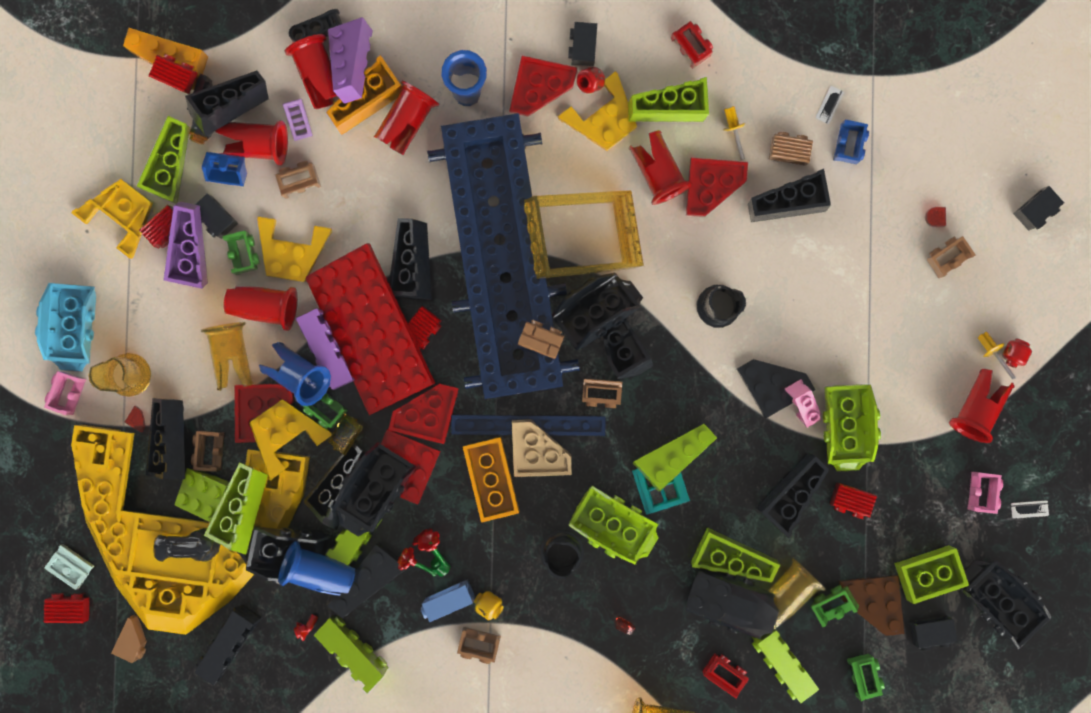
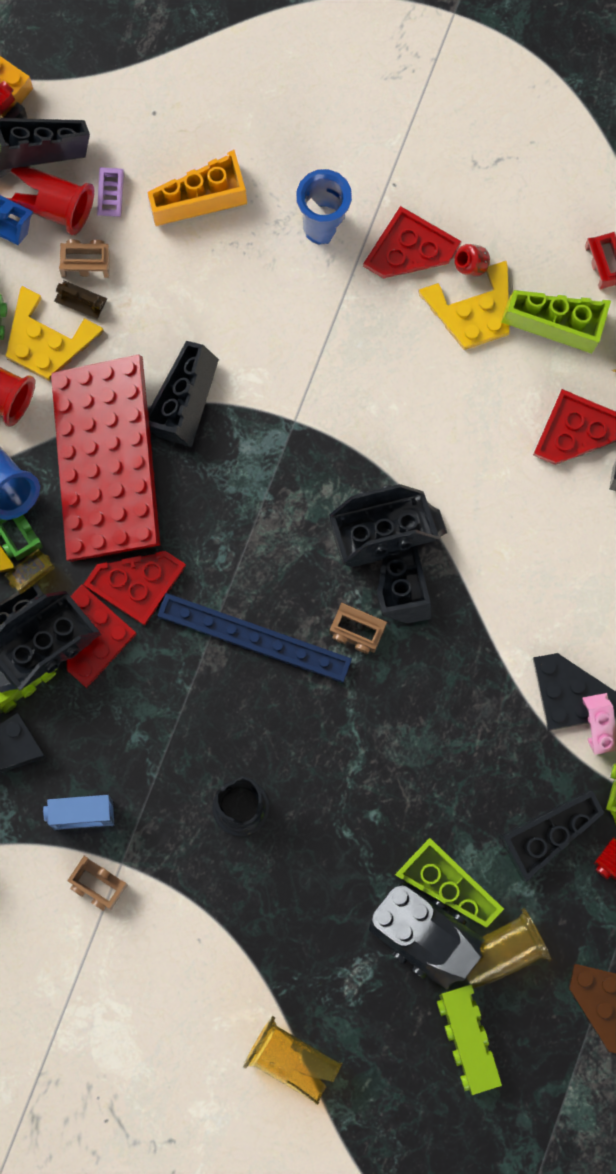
camera: 20 degrees right, 10 degrees down
(305, 212) = (80, 299): none -> dark brown hinge
(314, 69) = (152, 141): red piece -> none
(324, 20) = (183, 102): black piece -> none
(324, 347) = (44, 460): medium lavender wedge -> none
(348, 58) = (195, 140): medium lavender wedge -> none
(405, 118) = (238, 229): red piece -> none
(423, 325) = (170, 476): red brick -> none
(426, 541) = (82, 728): red plant -> none
(485, 261) = (271, 423): dark blue piece -> none
(488, 605) = (127, 838): yellow head -> none
(491, 479) = (185, 684): light orange brick -> none
(537, 452) = (253, 672): tan plate -> none
(540, 339) = (304, 527): medium nougat brick -> none
(584, 43) = (478, 217): black brick -> none
(614, 526) = (318, 793): lime slope -> none
(624, 626) = (286, 924): clear red tile -> none
(625, 223) = (456, 435): clear yellow window -> none
(652, 500) = (390, 767): teal piece -> none
(662, 173) = (521, 393): red piece -> none
(669, 460) = (417, 735): lime wedge -> none
(706, 311) = (548, 589): black piece -> none
(738, 671) = (383, 1036): red window -> none
(836, 612) = (539, 1001): bright green window -> none
(858, 677) = (557, 1091): bright green window -> none

